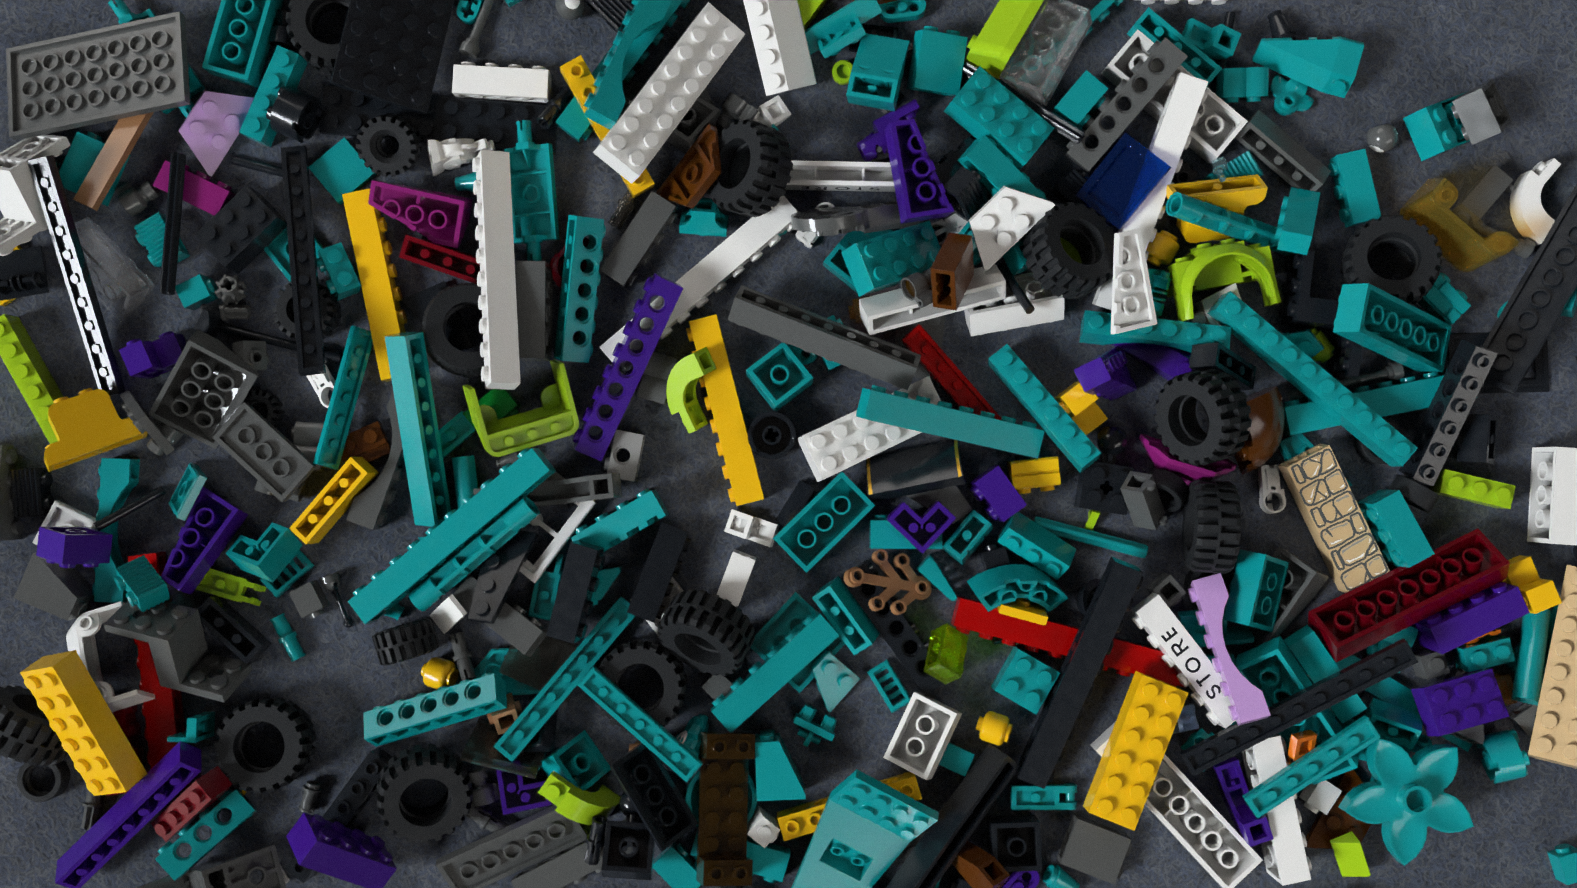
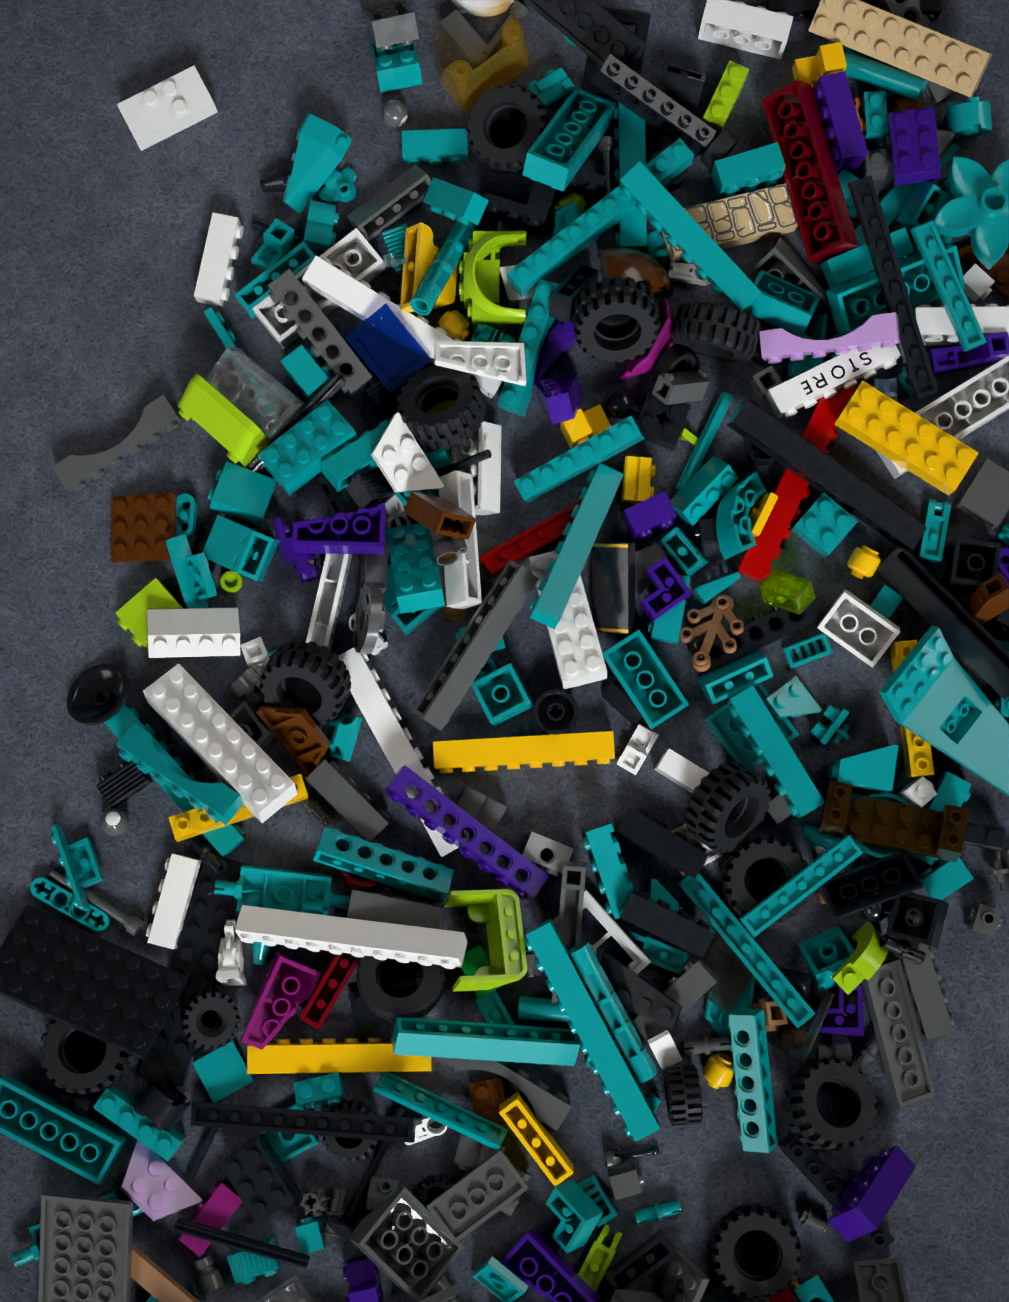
camera: 70 degrees left, 5 degrees down
(682, 388) = (493, 786): lime arch -> none
(1301, 744) = (926, 291): orange plate -> none
(1308, 478) = (689, 237): none -> teal brick

